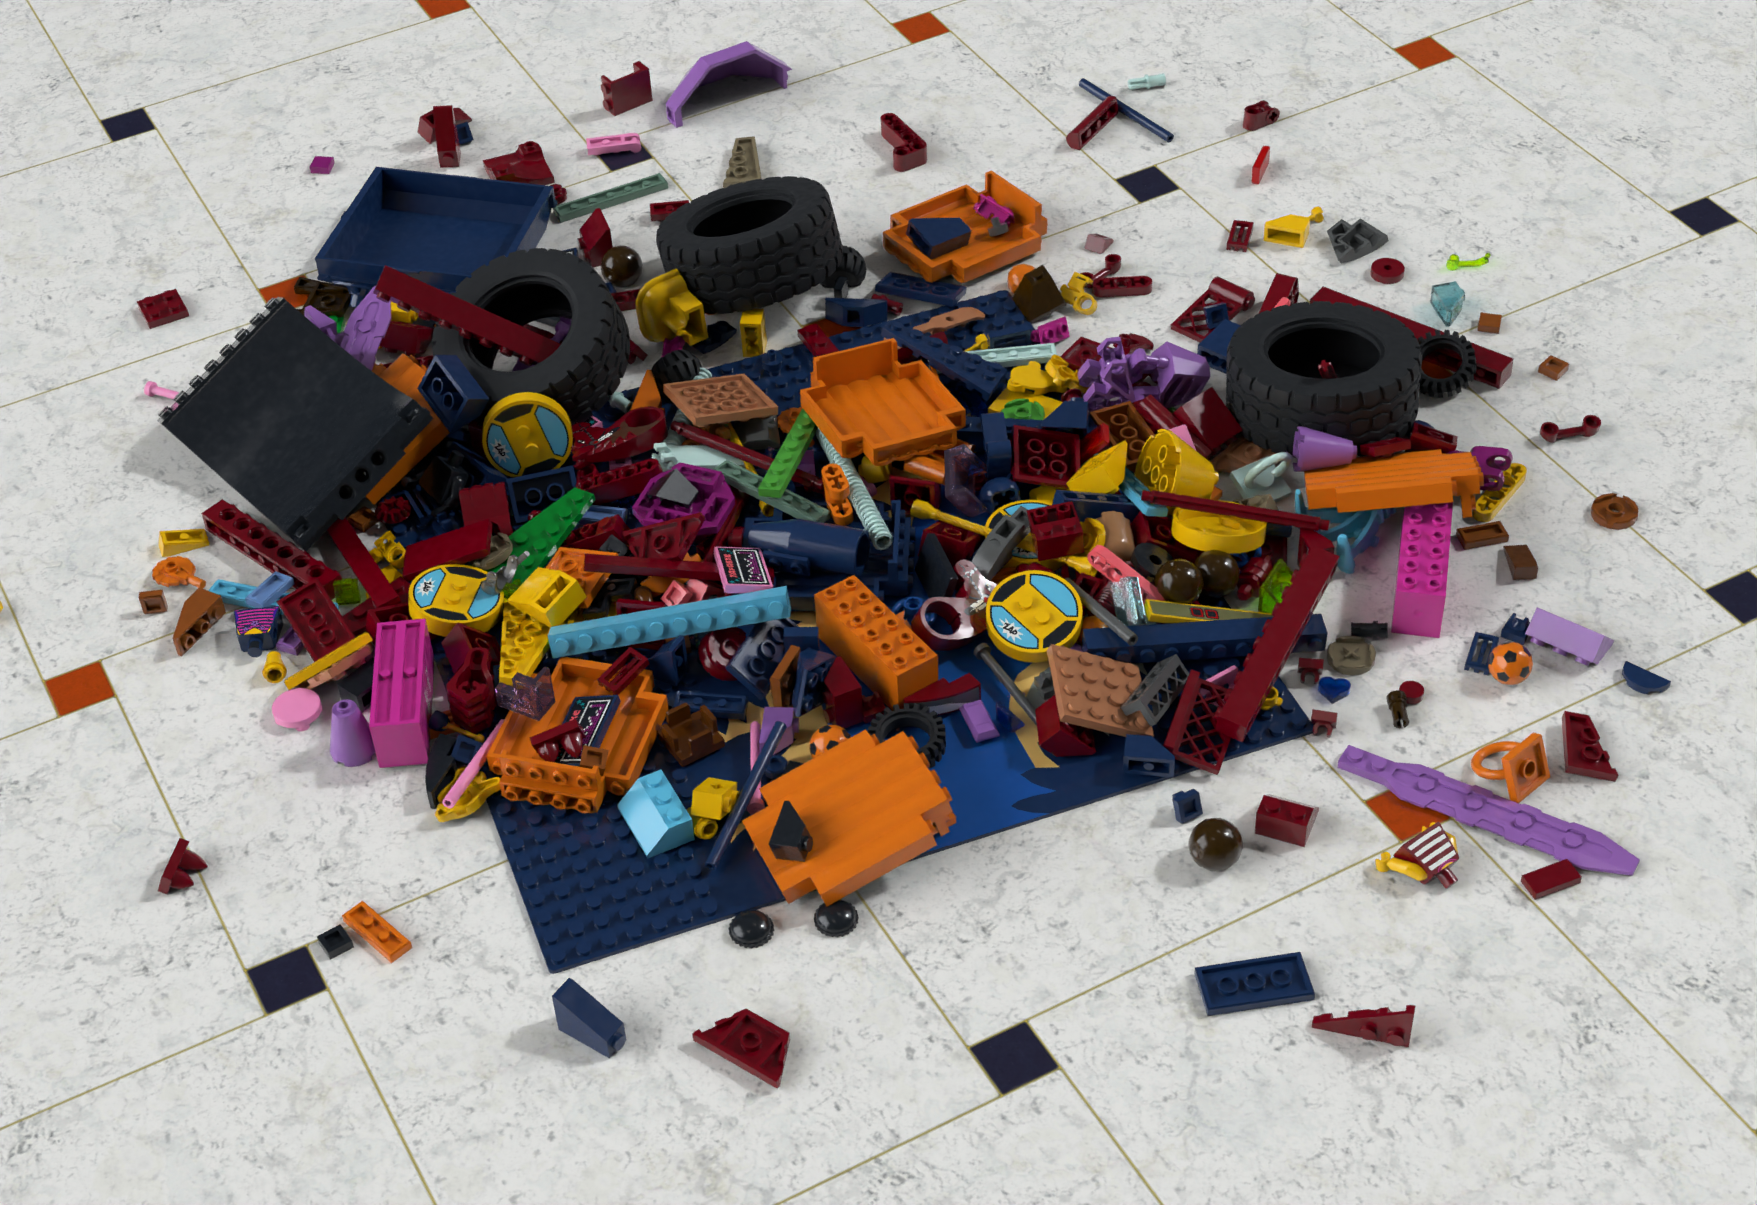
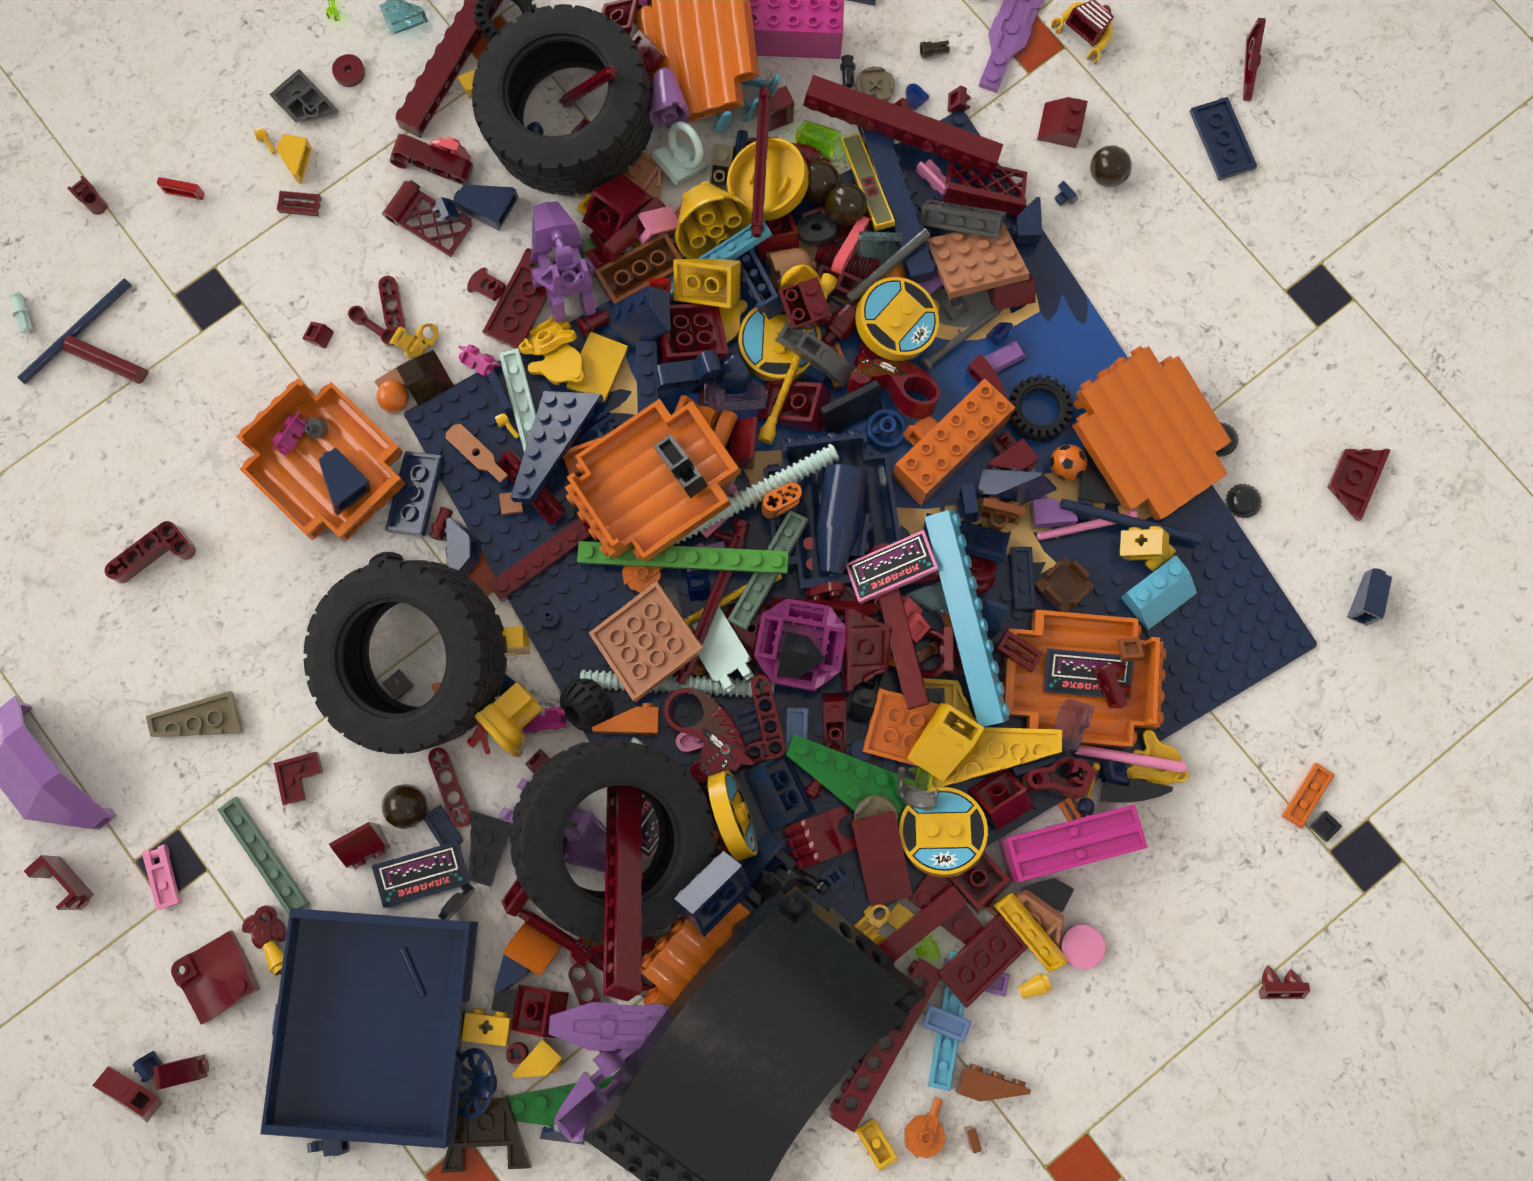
camera: 105 degrees left, 35 degrees up
(258, 629) = (995, 1019): dark blue torso -> none
(350, 735) = (1113, 880): medium lavender cone -> none
(790, 836) = (1191, 466): black slope -> none
(886, 415) = (680, 466): none -> black slope
(1023, 410) = (616, 366): bright green tile -> none
(1413, 690) = (911, 40): dark red tile -> none

